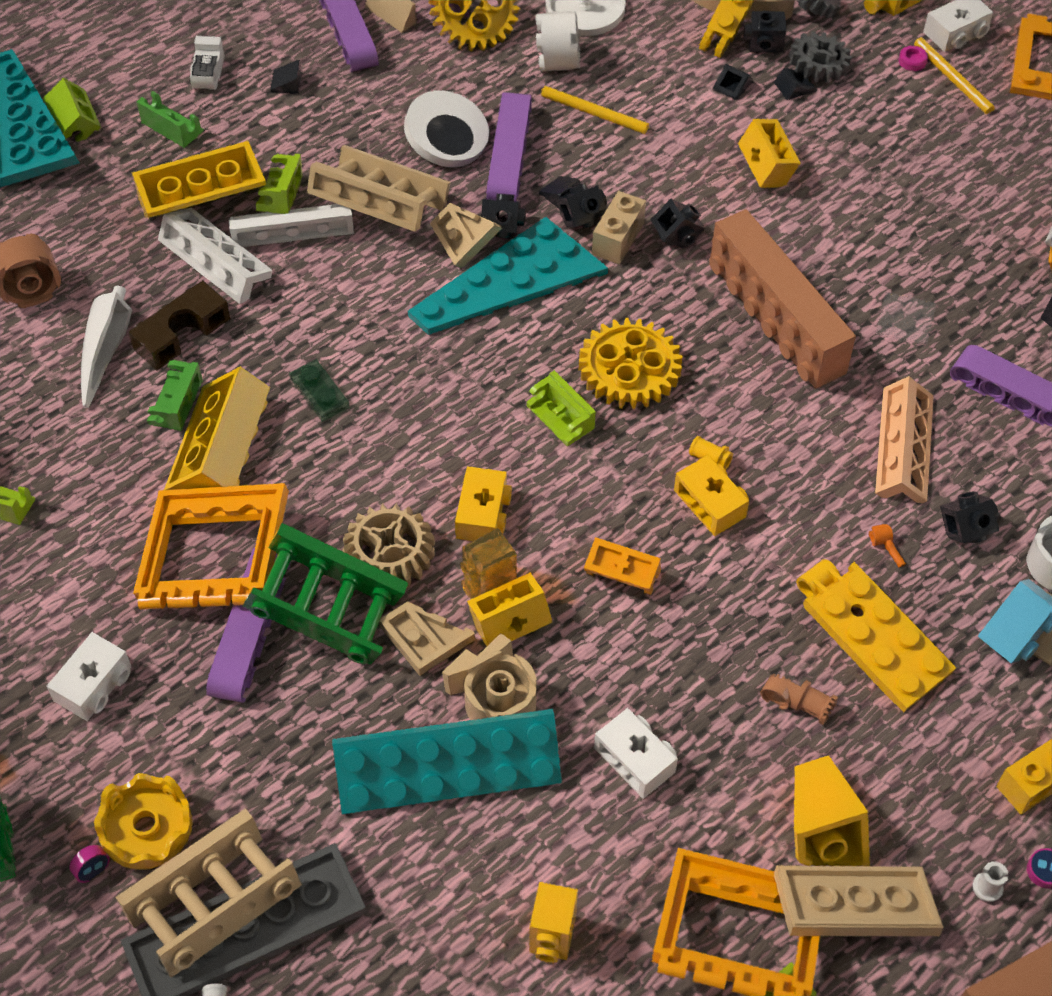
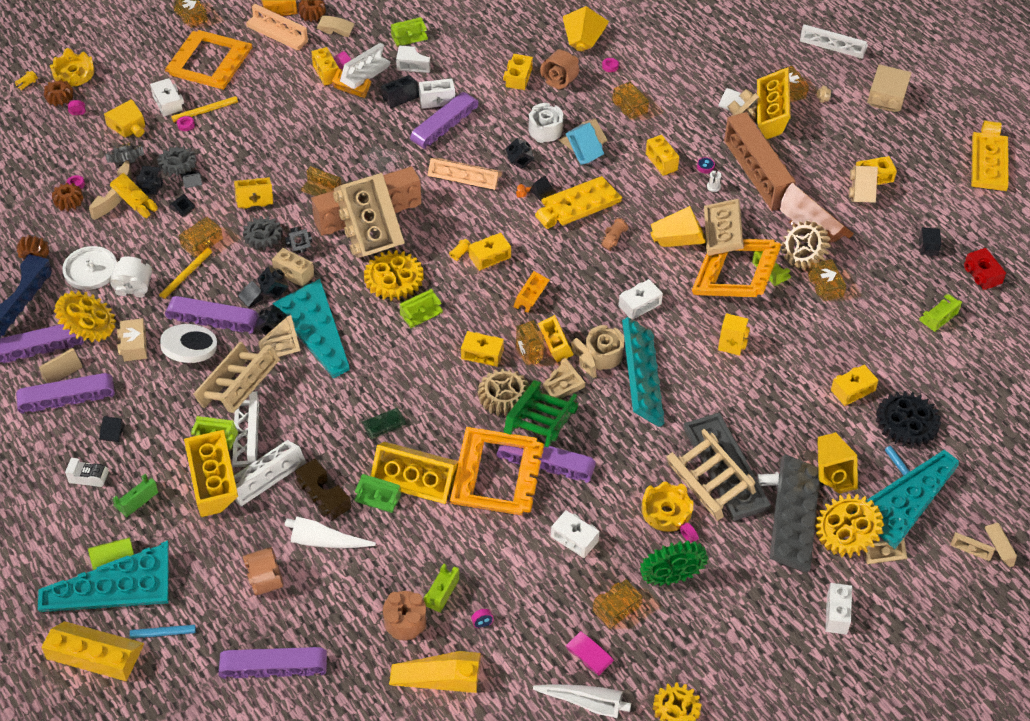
camera: 85 degrees left, 5 degrees down
(448, 68) = (133, 340): none -> tan brick
(665, 109) = (200, 236): none -> clear yellow brick
(690, 181) = (262, 233): none -> dark grey gear
(719, 287) = (379, 211): none -> tan brick
(817, 243) = (320, 182): none -> clear yellow panel
(891, 567) = (542, 188): none -> black slope

